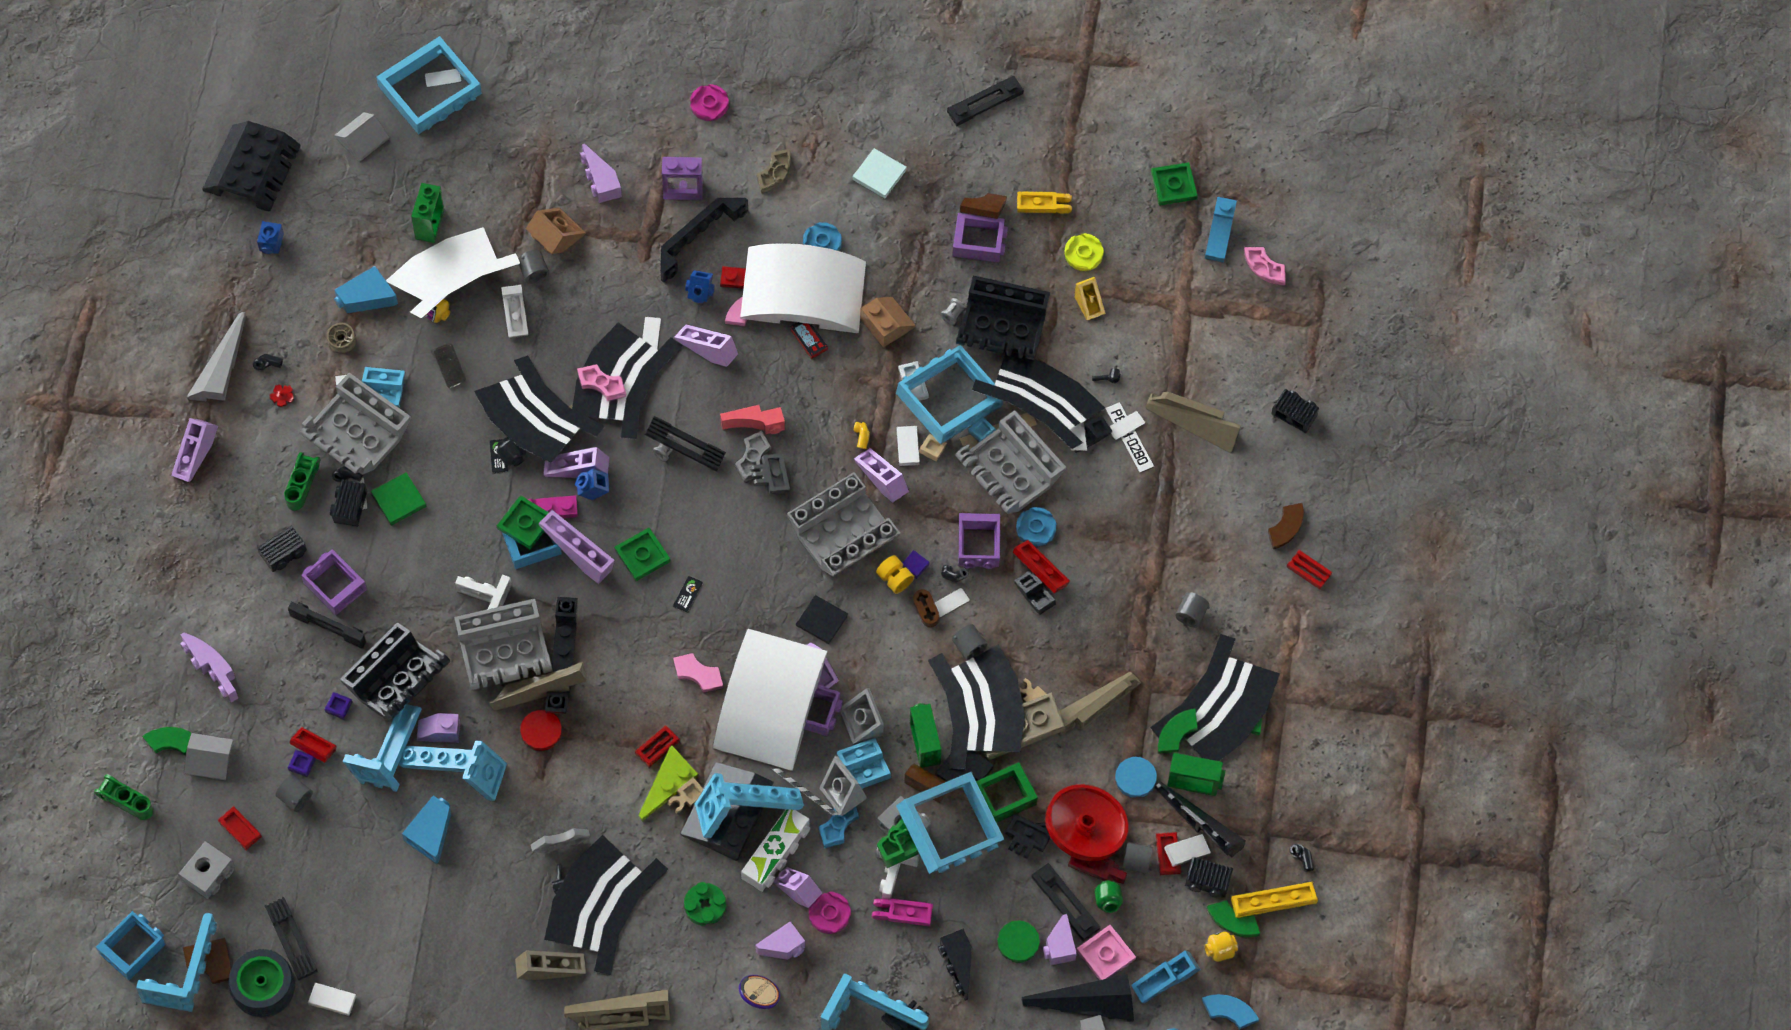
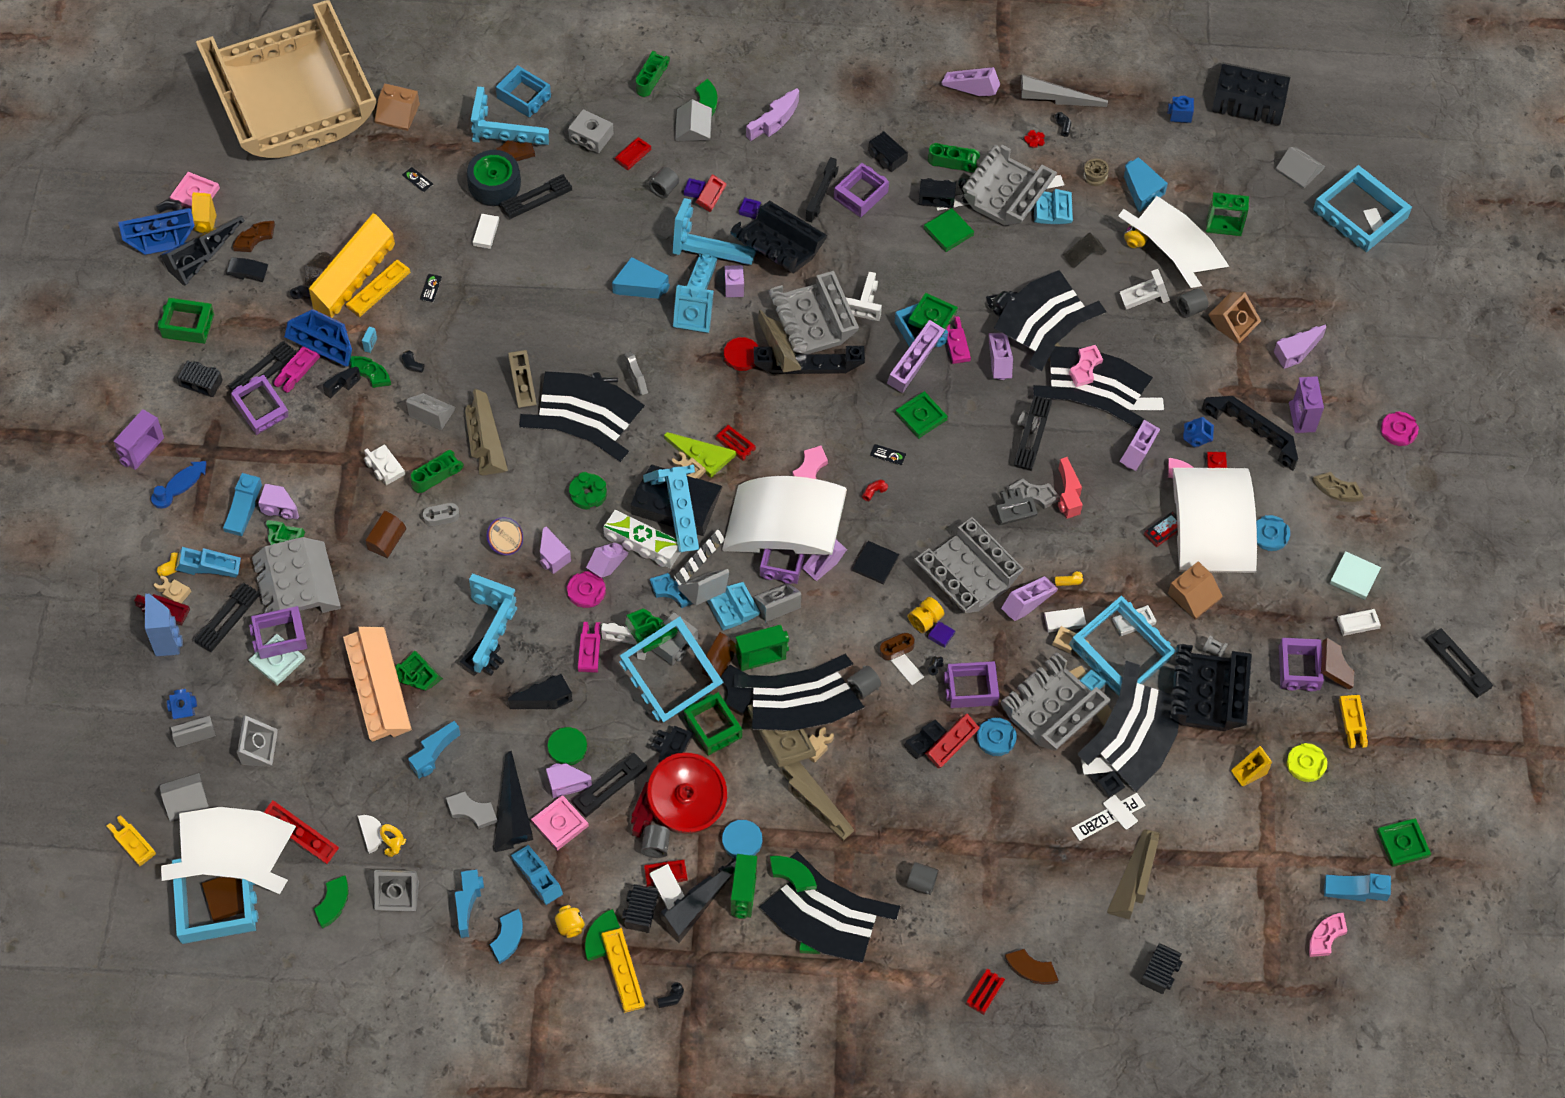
camera: 85 degrees right, 5 degrees down
(592, 484) = (981, 365): blue brick -> none
(731, 612) = (873, 487): none -> red arm
(932, 180) = (1358, 622): none -> white tile
(1108, 896) = (615, 819): green head -> none
(1113, 377) = (1171, 797): black hand -> none

